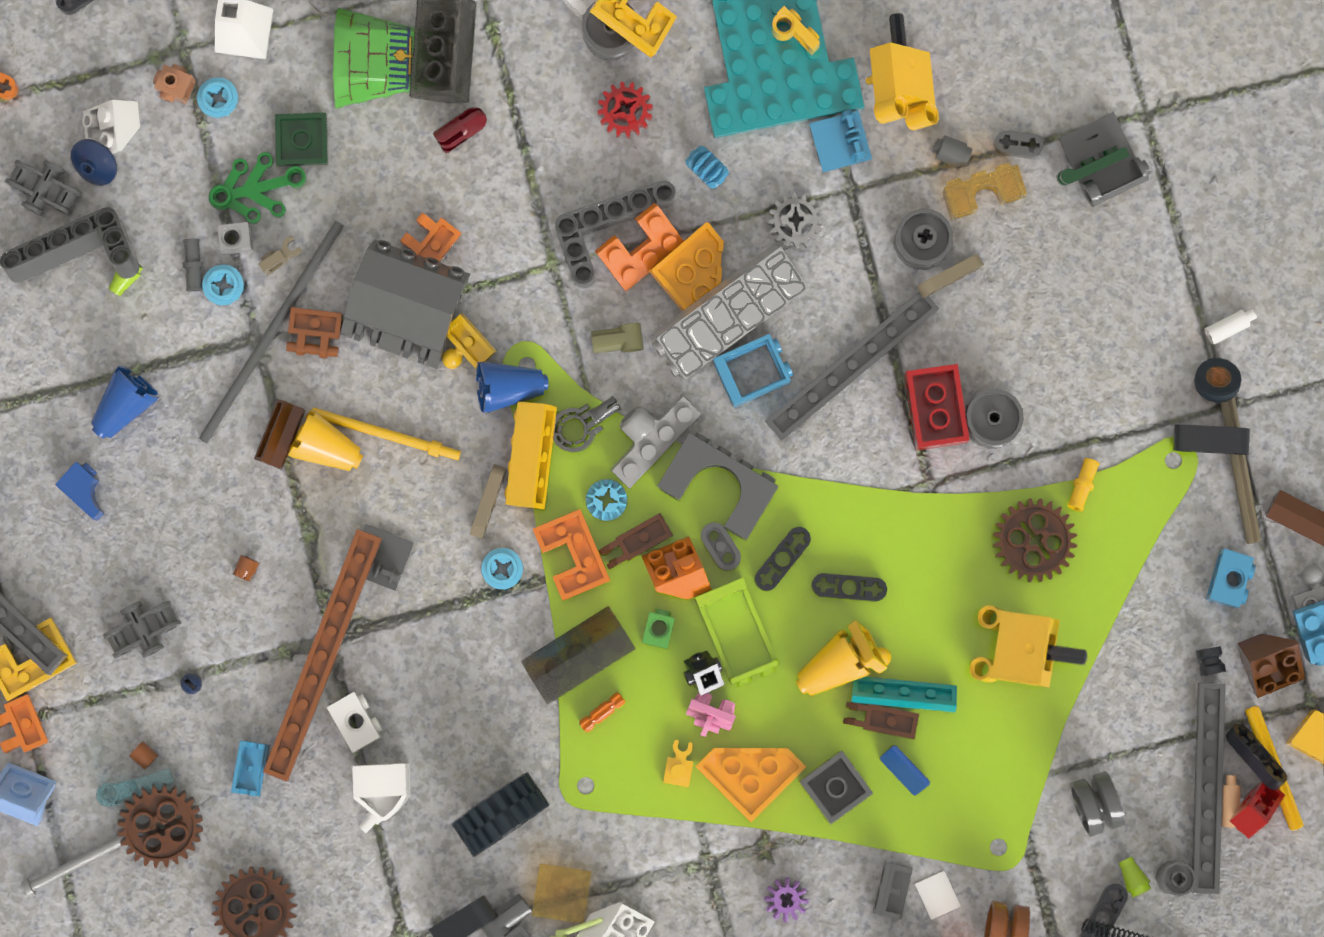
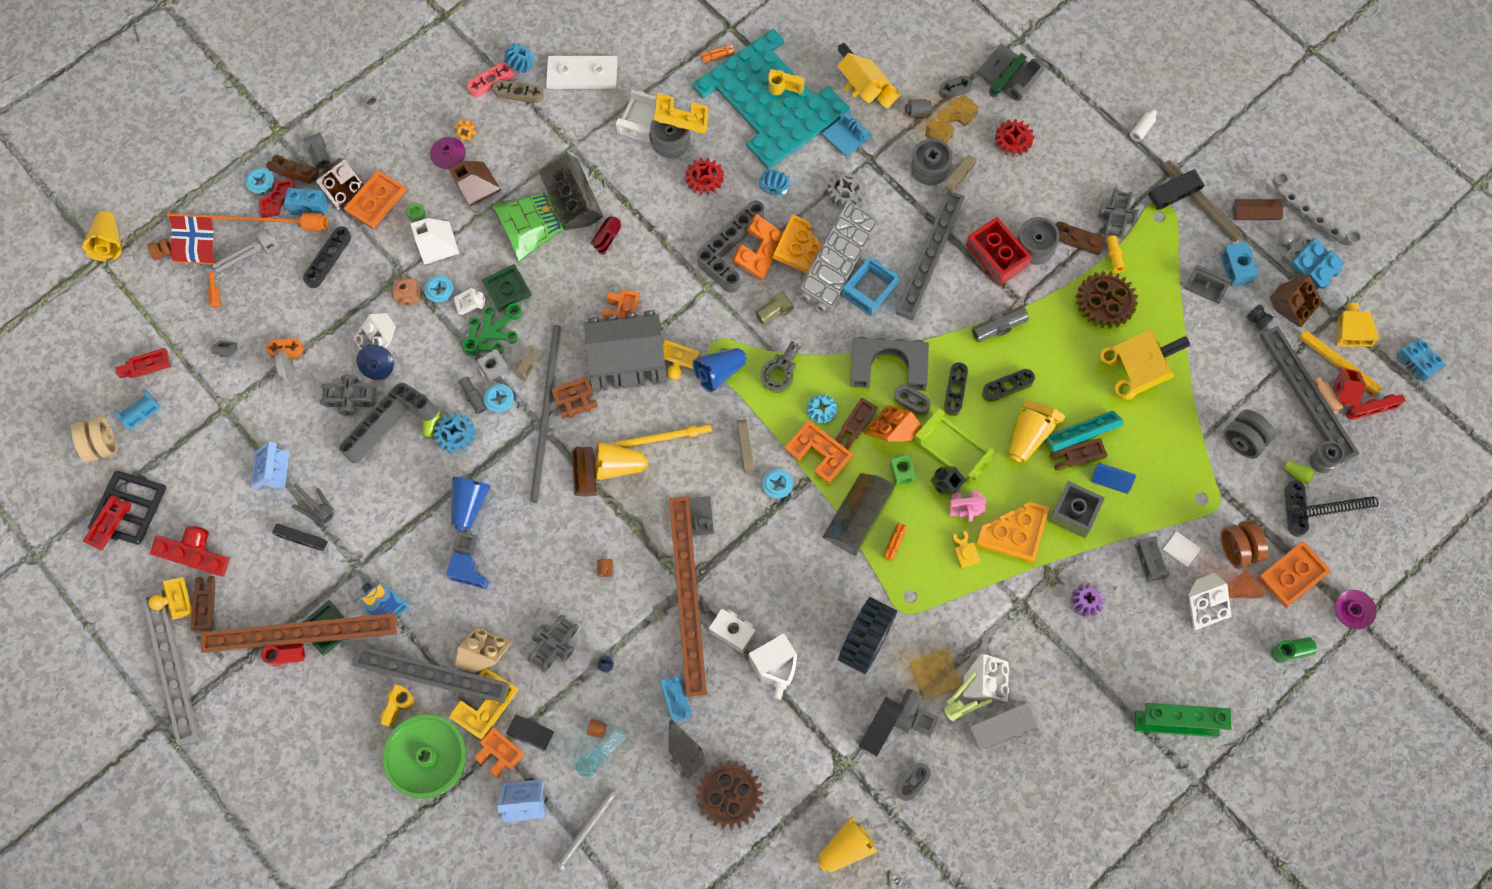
camera: 25 degrees left, 15 degrees down
(56, 596) = (481, 650): none -> tan slope
(66, 721) = (530, 732): none -> black slope
(97, 454) = (465, 543): none -> dark grey plate
(155, 297) = (458, 439): none -> dark azure gear
(170, 845) = (646, 782): reddish brown gear -> none
(220, 839) = (684, 752): none -> clear smoke slope
(247, 135) = (469, 300): none -> white bracket
(530, 455) = (758, 402): yellow brick -> none
(651, 437) = (829, 356): light grey plate -> none
(883, 504) = (1000, 324): none -> dark grey piece
(1042, 253) = (1014, 137): none -> red gear
(1054, 440) = (1080, 238): none -> reddish brown hinge
(1120, 431) = (1118, 213): none -> dark grey axle
(1174, 584) = (1208, 284): none -> dark grey hinge
(1217, 380) = (1157, 156): black wheel -> none
(1247, 747) = (1326, 358): black beam -> none
(1277, 845) = (1374, 407): none -> red plate

